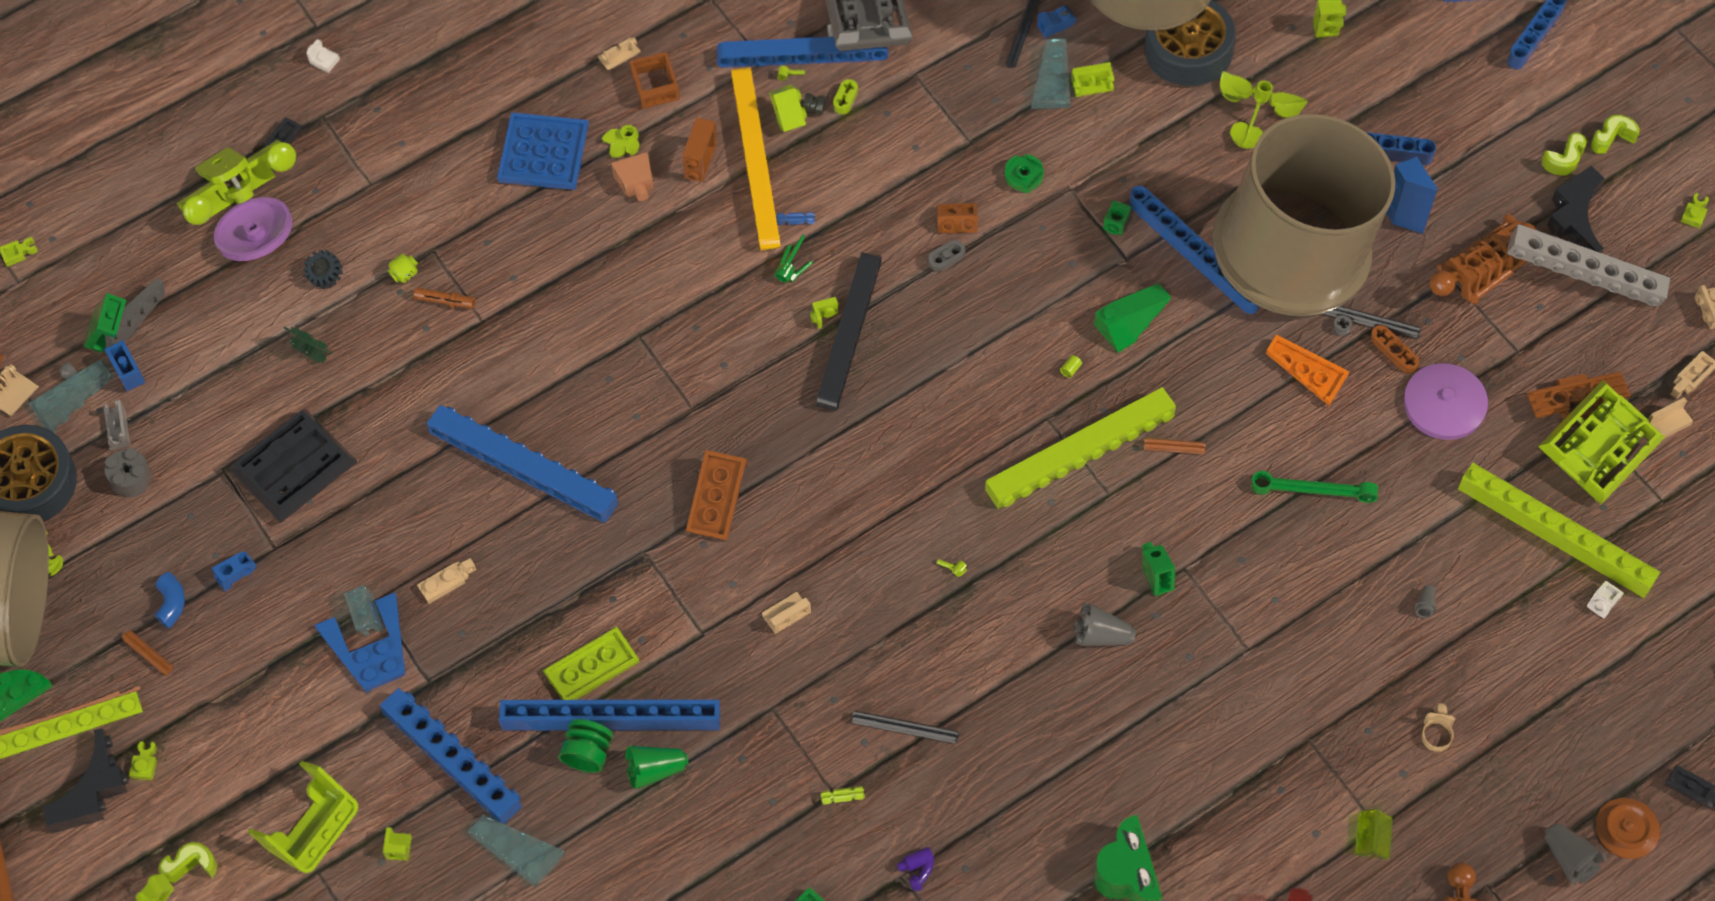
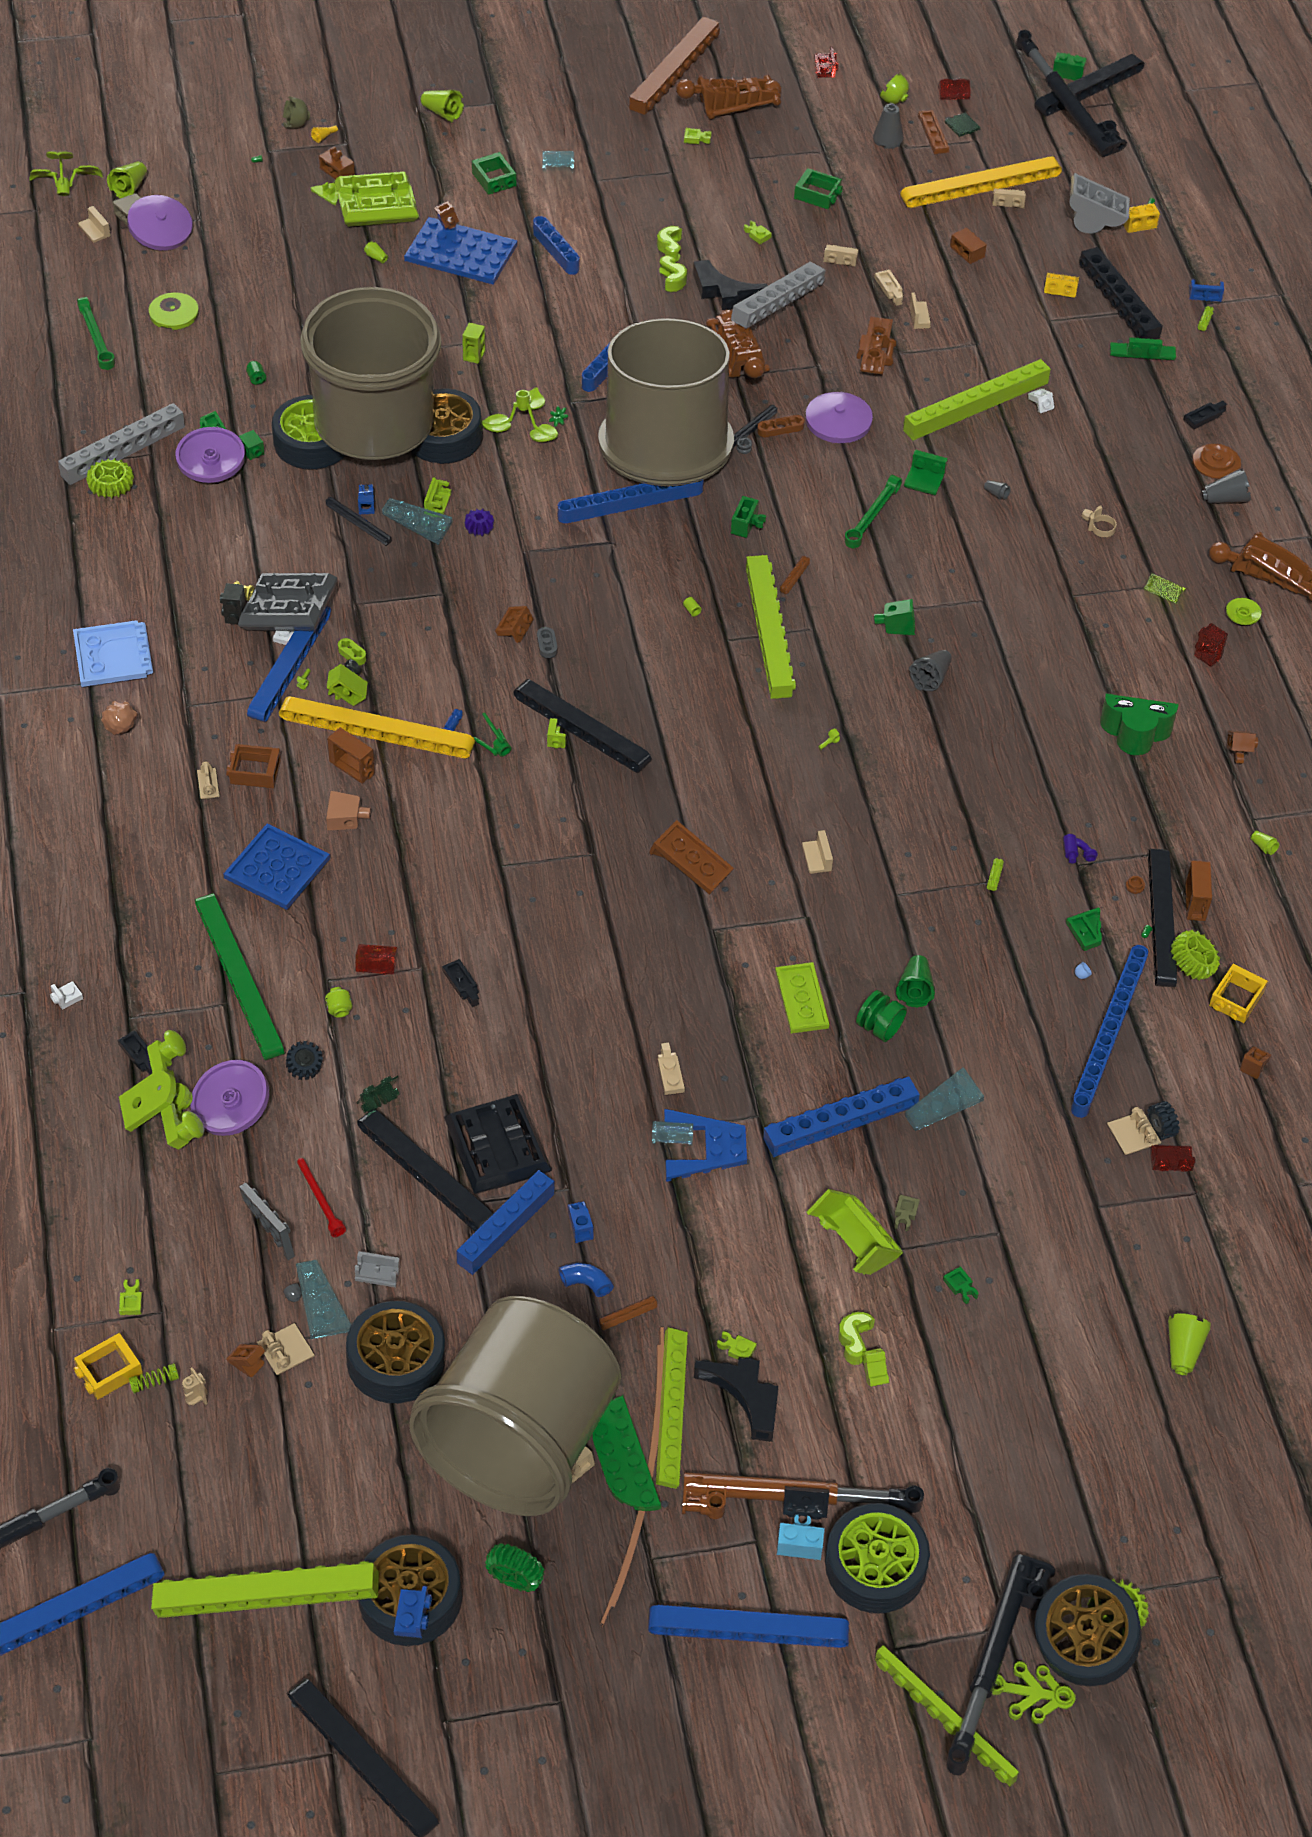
camera: 70 degrees left, 10 degrees down
(104, 322) = (268, 1236): green panel -> none
(125, 365) = (319, 1240): blue brick -> none
(127, 472) = (435, 1272): dark grey brick -> none
(151, 374) = (335, 1226): none -> red piece
(205, 507) = (505, 1222): none -> blue brick
(240, 420) = (424, 1169): none -> black beam
(361, 858) = (906, 1211): none -> olive plate
(396, 845) = (906, 1182): lime panel -> none
(399, 177) = (239, 977): none -> green beam
(452, 299) = (392, 977): dark orange pin -> none
(470, 275) = (375, 959): none -> clear red bracket
(473, 359) = (462, 981): none -> black hinge
(523, 463) = (585, 980): blue brick -> none
(611, 714) = (857, 993): blue brick -> none
(621, 142) = (301, 810): lime plate -> none
(905, 726) = (954, 816): axle -> none
(1020, 182) = (498, 577): green plate -> none
(1078, 129) = (479, 522): none -> dark purple gear
(1117, 211) = (575, 530): green brick -> none
(1129, 316) = (667, 558): green wedge -> none
(1224, 365) = (746, 516): none -> green brick
(1311, 370) = (772, 475): orange wing -> none
(1402, 519) = (926, 472): none -> green bracket
(1602, 441) = (922, 349): lime piece -> none

